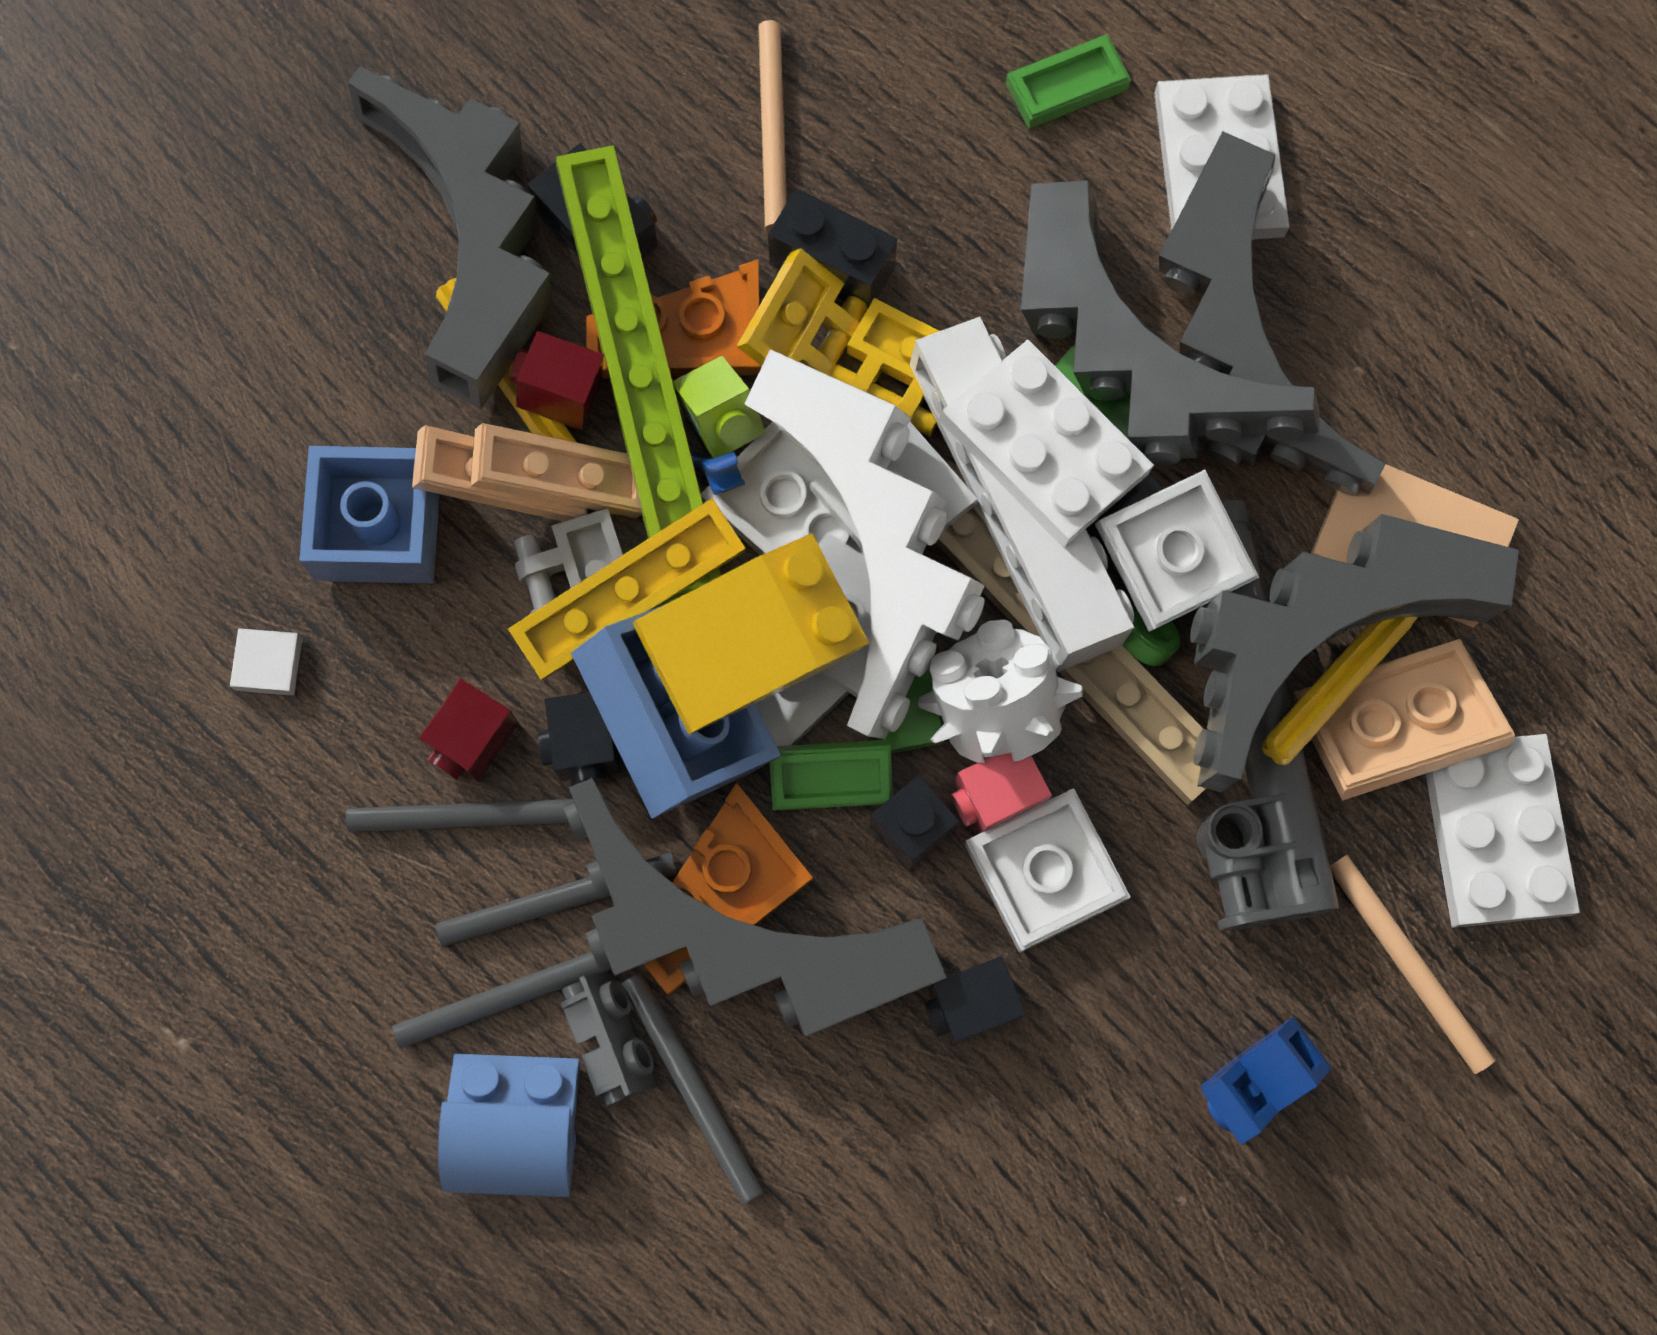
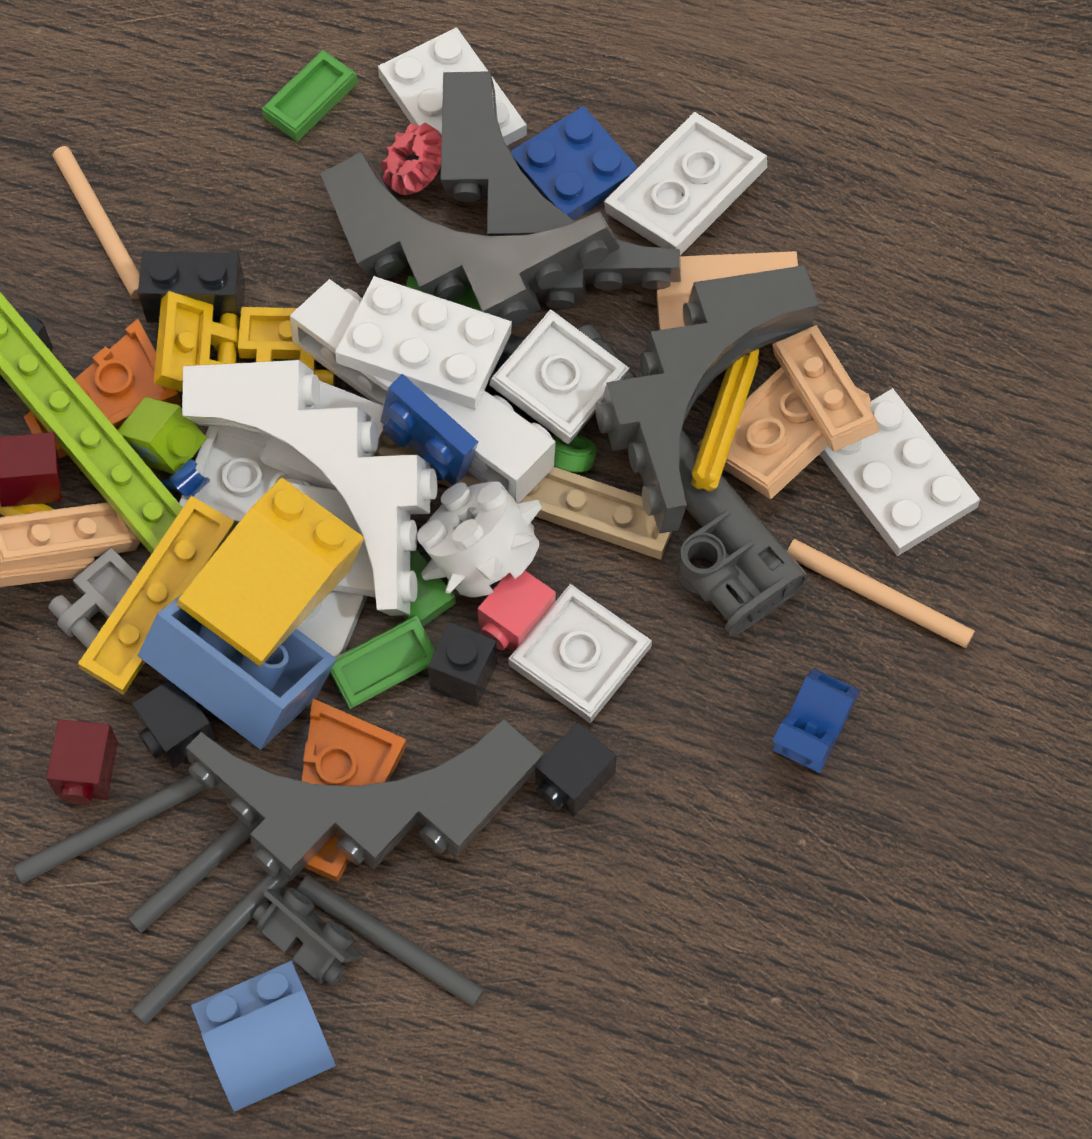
camera: 25 degrees left, 10 degrees down
(991, 531) = (428, 430): none -> blue plate
(1133, 231) = (412, 176): none -> coral gear
(1319, 298) = (574, 163): none -> blue plate
(1433, 382) = (686, 184): none -> white plate
(1469, 704) = (825, 388): none -> light nougat tile

